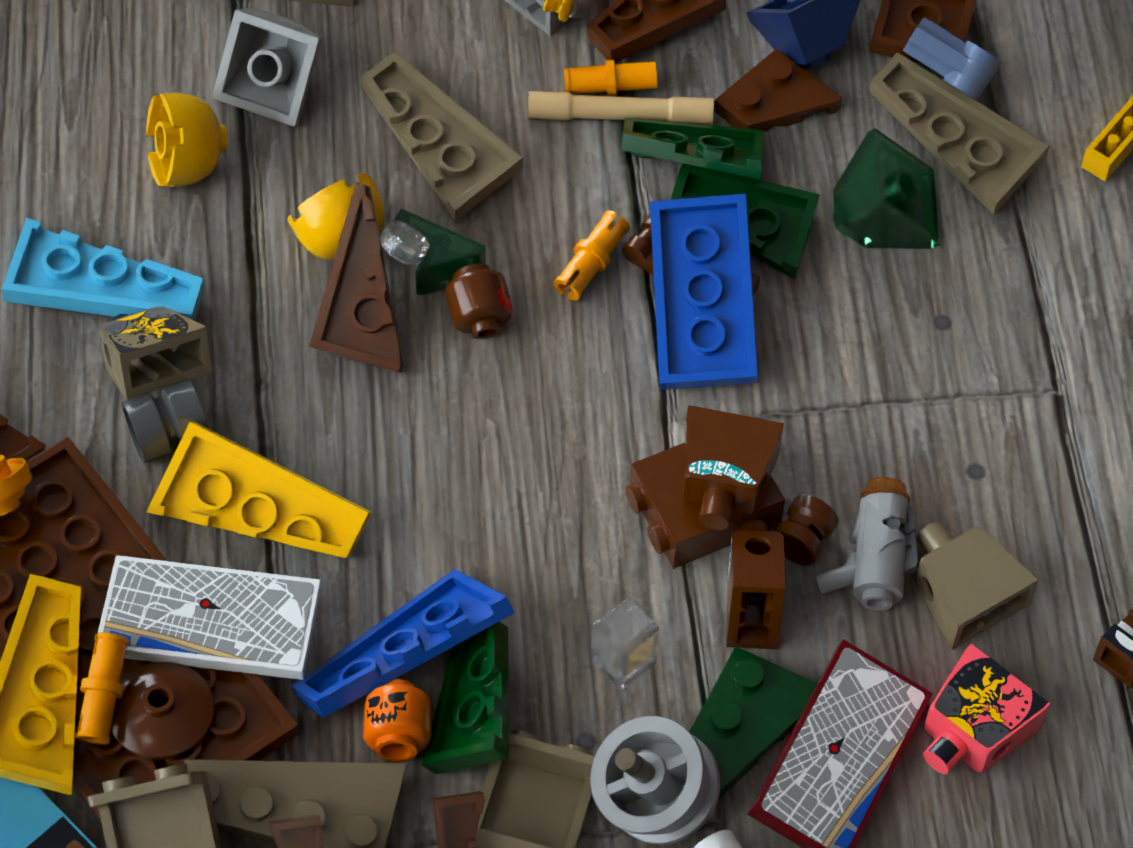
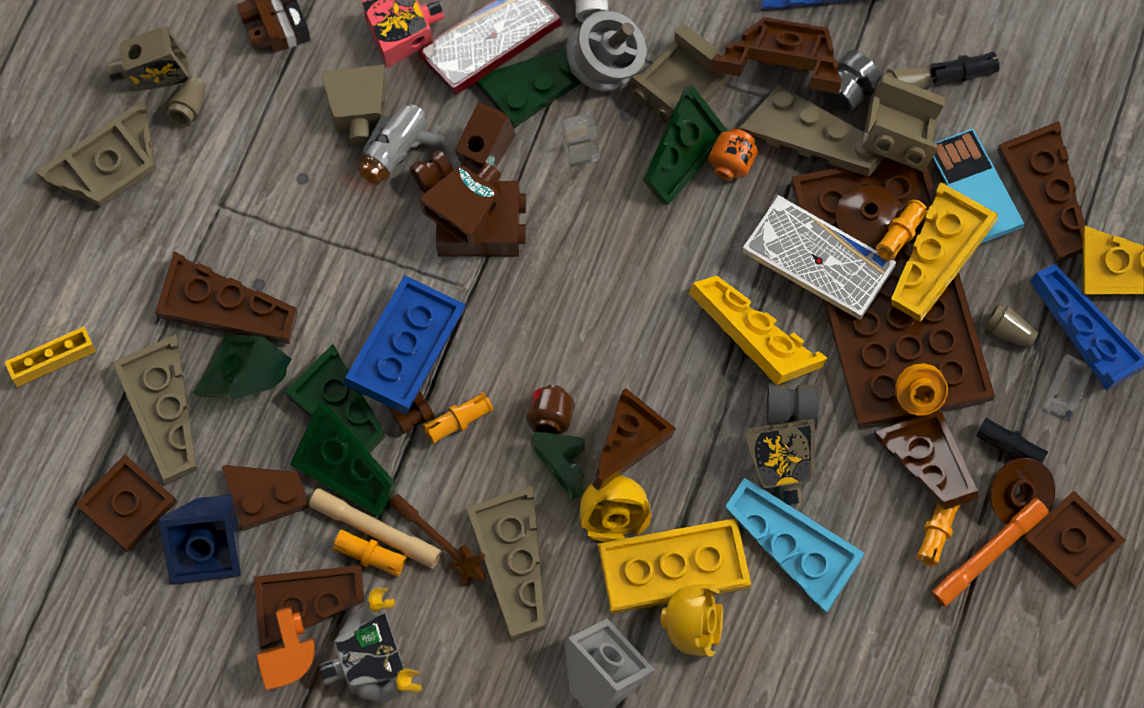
camera: 150 degrees left, 10 degrees up
(234, 206) = (653, 566): none -> yellow tile
(404, 242) = (584, 450): clear tile -> none
(407, 638) = (701, 200): blue wing -> none
(499, 110) = (465, 562): none -> reddish brown piece
(961, 63) = (131, 440): sand blue piece -> none
(972, 267) = (212, 301): none -> reddish brown wing

